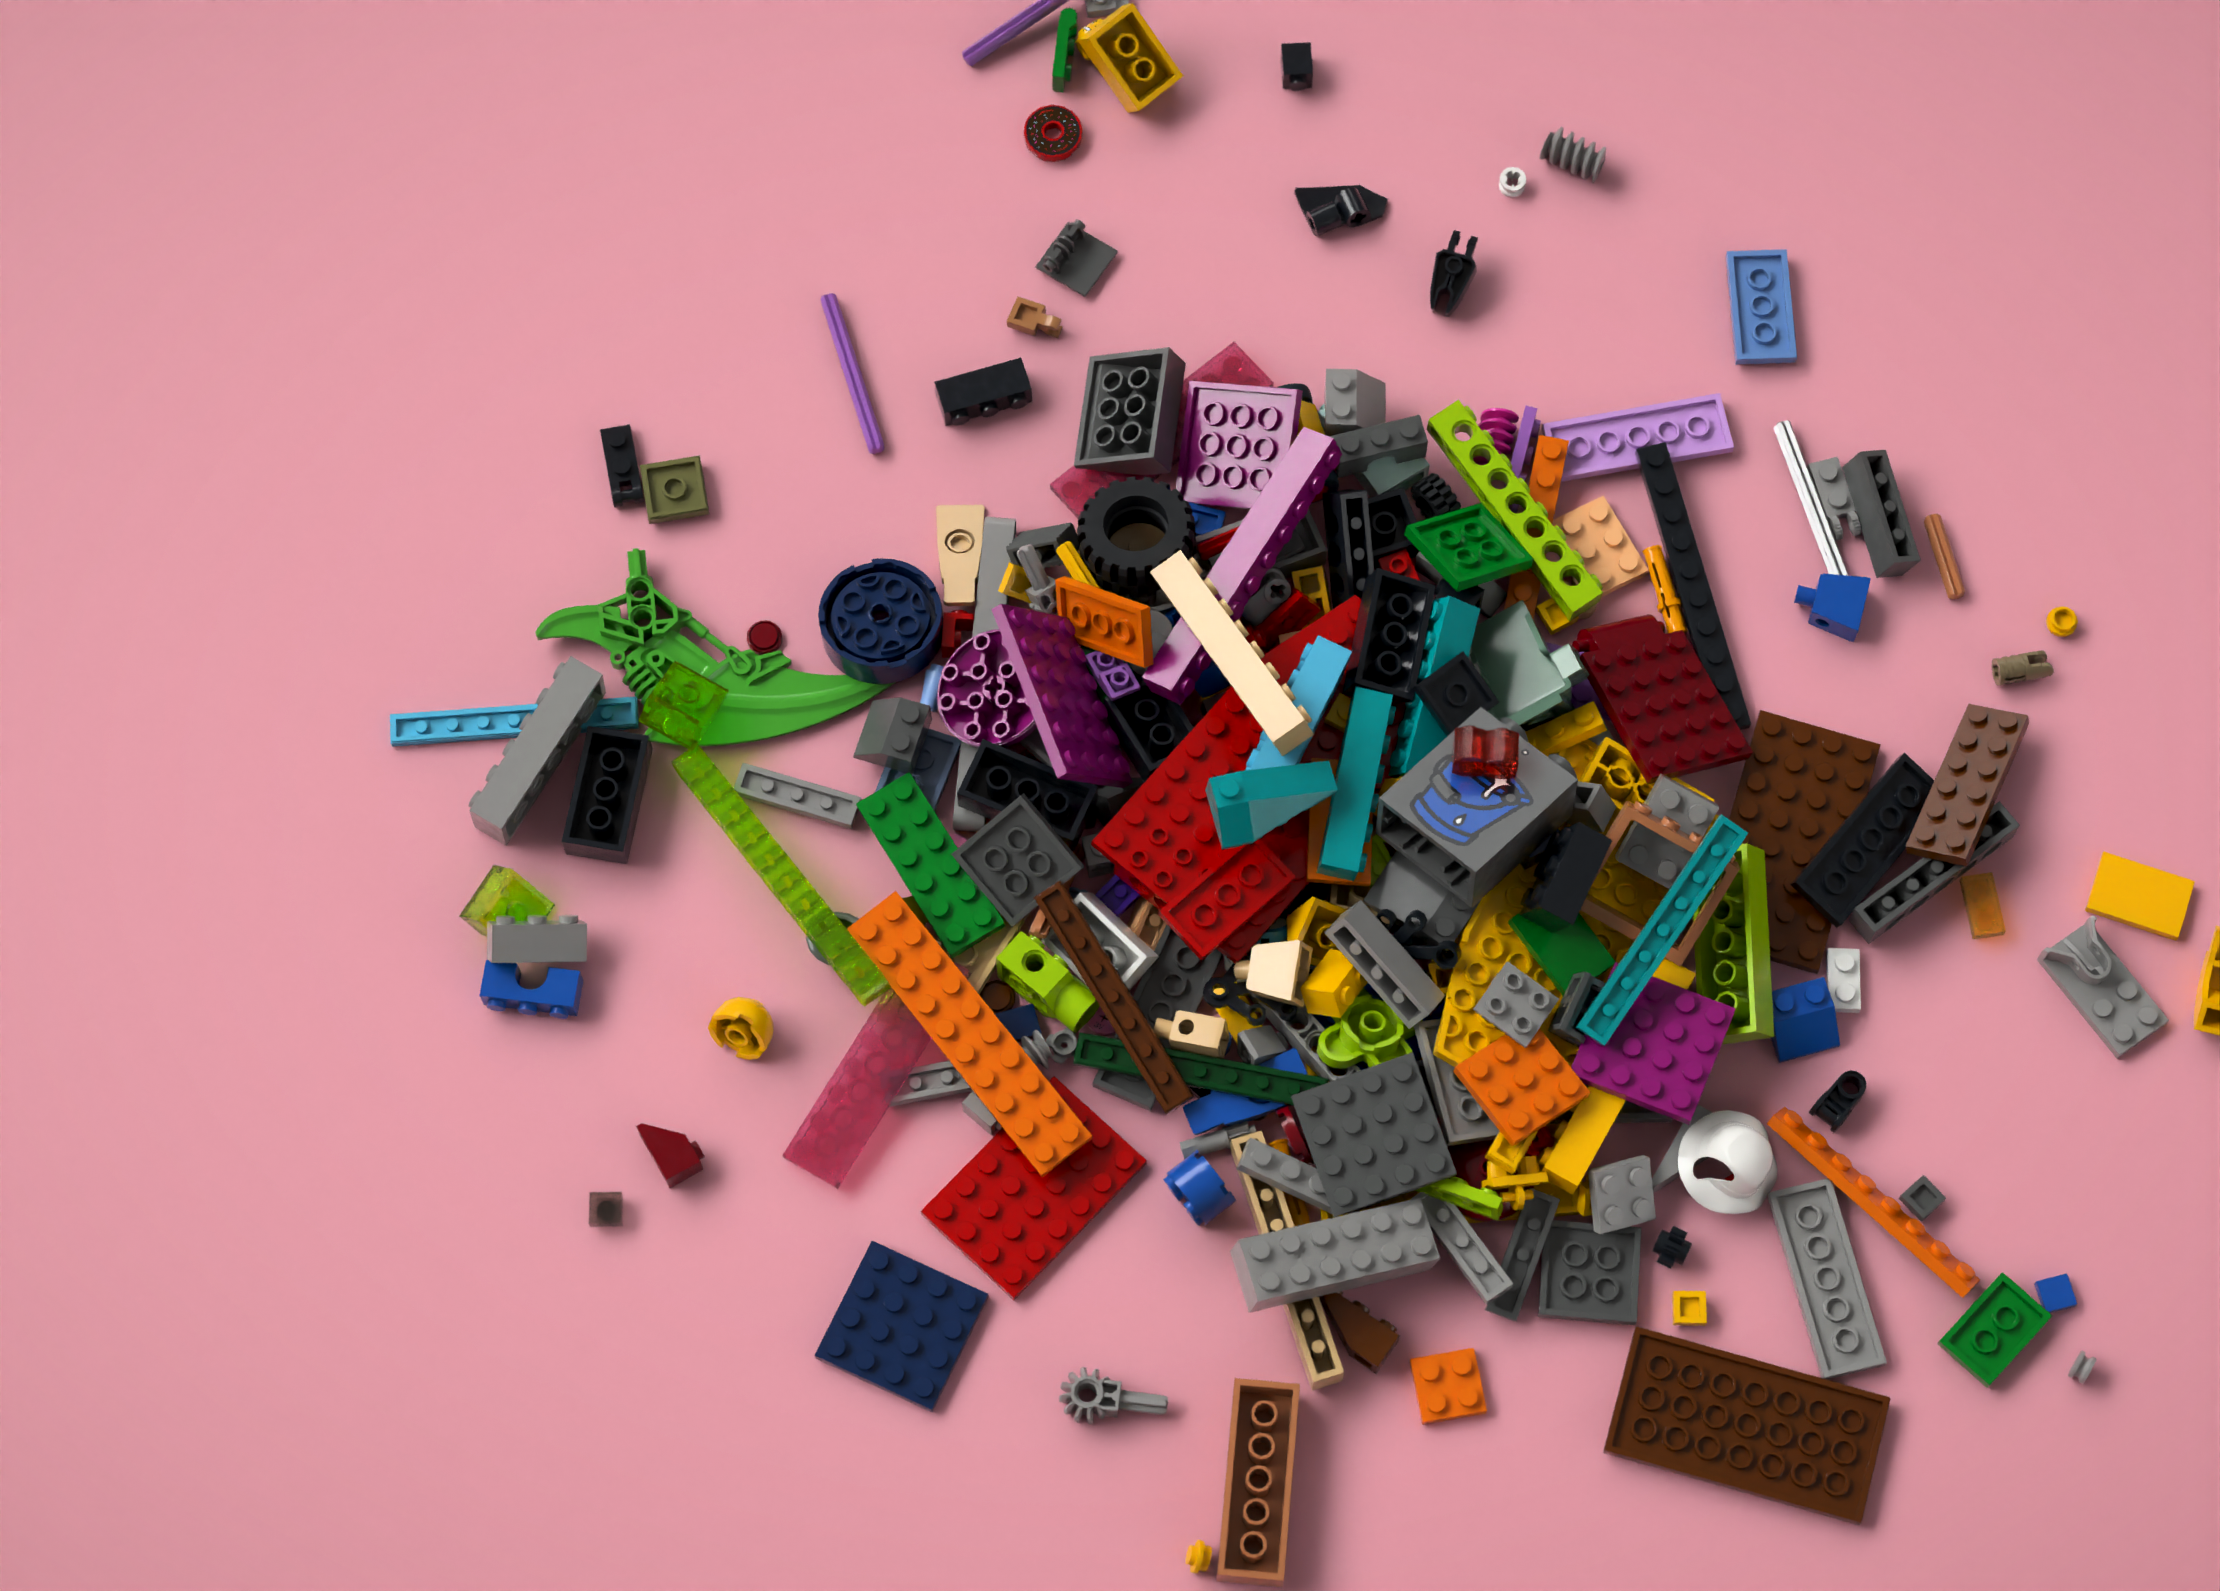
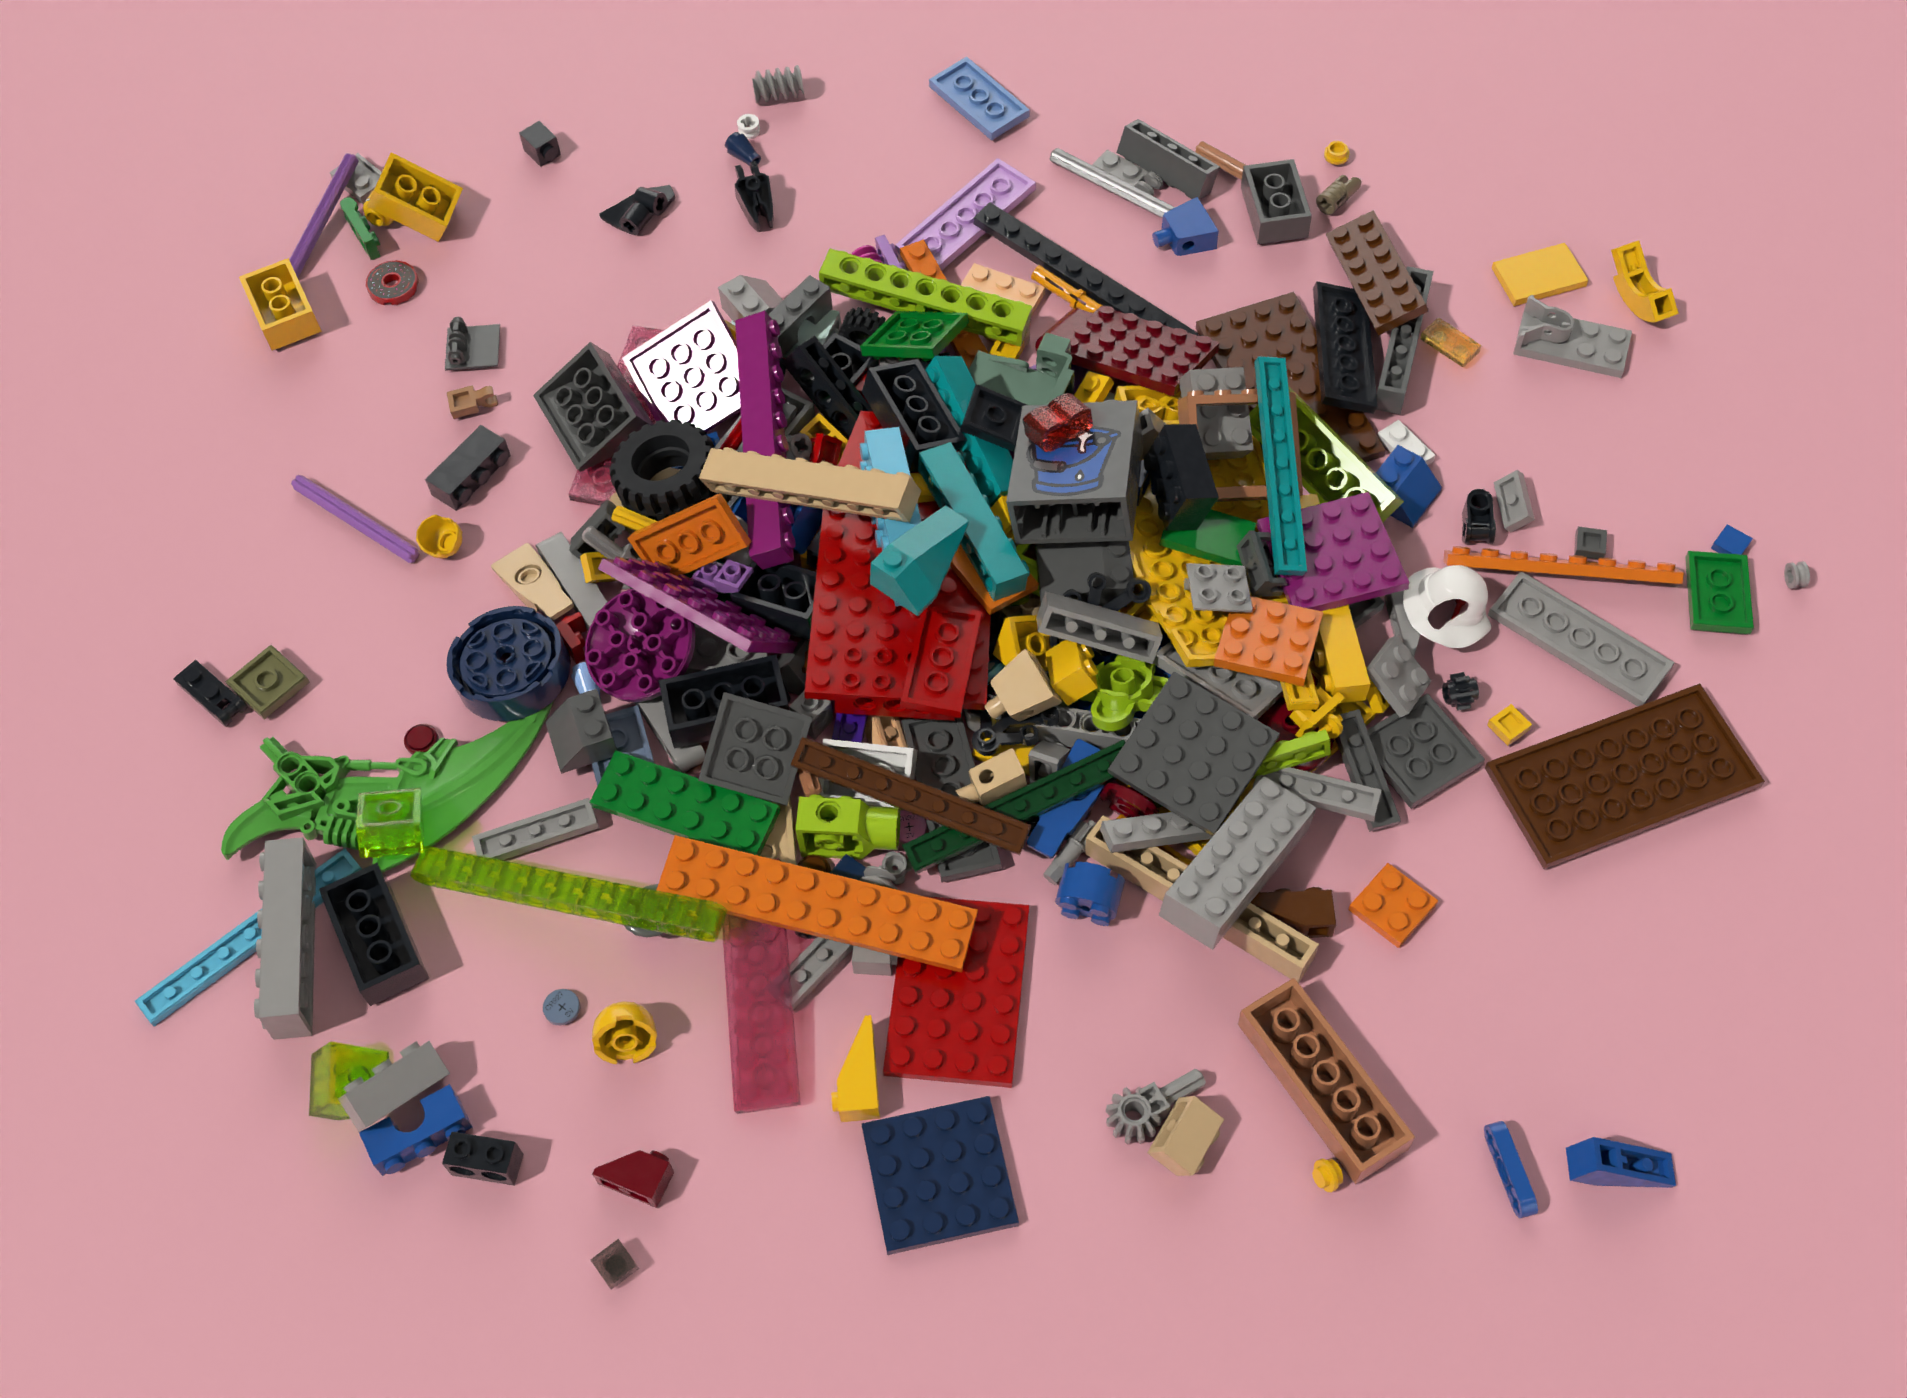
camera: 35 degrees left, 10 degrees down
(565, 1050) = (483, 1158): none -> black brick
(712, 966) = (561, 1007): none -> sand blue piece
(897, 1202) = (857, 1082): none -> yellow slope
(909, 448) = (439, 536): none -> yellow hair
(933, 92) = (280, 304): none -> yellow brick
(1112, 1443) = (1186, 1136): none -> tan brick
(1484, 205) = (741, 148): none -> dark blue cone
(1889, 1107) = (1514, 501): none -> light grey plate
(1945, 636) = (1276, 201): none -> dark grey brick

